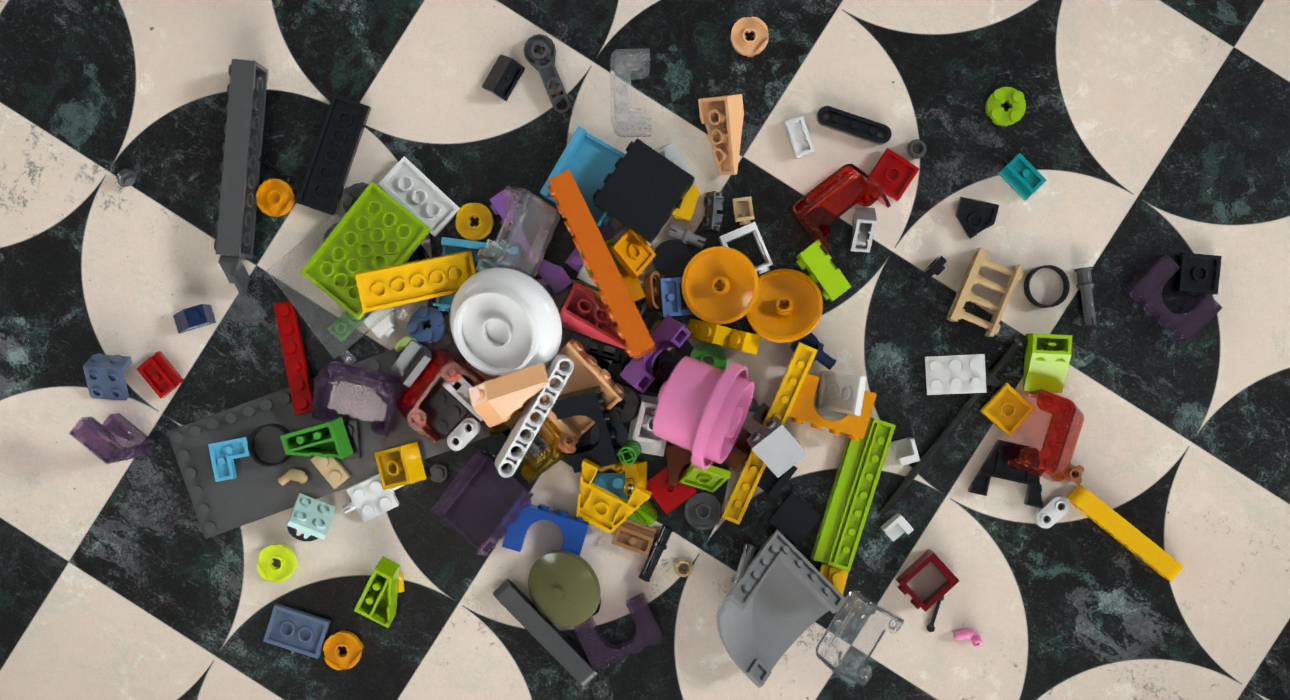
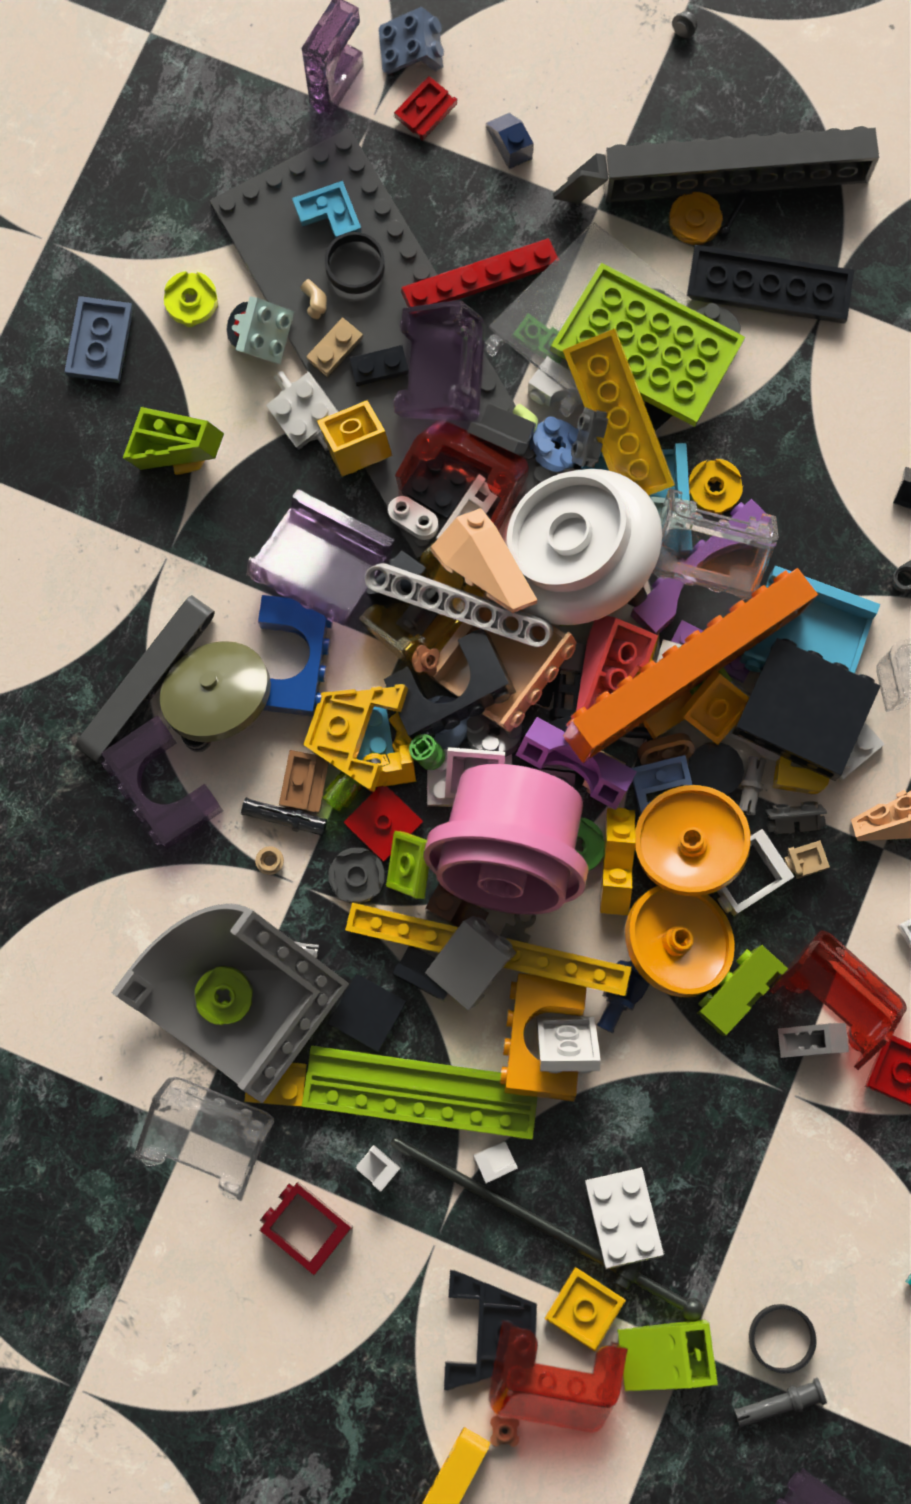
camera: 85 degrees right, 10 degrees down
(321, 440) = (375, 324): bright green wedge -> none
(353, 647) = (85, 419): light orange plate -> none
(419, 195) = (736, 406): white plate -> none
(420, 302) = (585, 449): none -> dark grey hinge
(438, 473) = (350, 494): black plate -> none
(676, 459) = (420, 819): reddish brown arch -> none
(768, 622) = (227, 1011): none -> lime plate
(930, 627) = (234, 1248): black hinge -> none
(935, 267) = (777, 1160): black plate -> none
(965, 294) = (774, 1221): tan fence -> none
(969, 634) = (232, 1309): bright pink arm -> none
(975, 215) = (868, 1208): black plate -> none
(1051, 510) = (440, 1407): white plate -> none

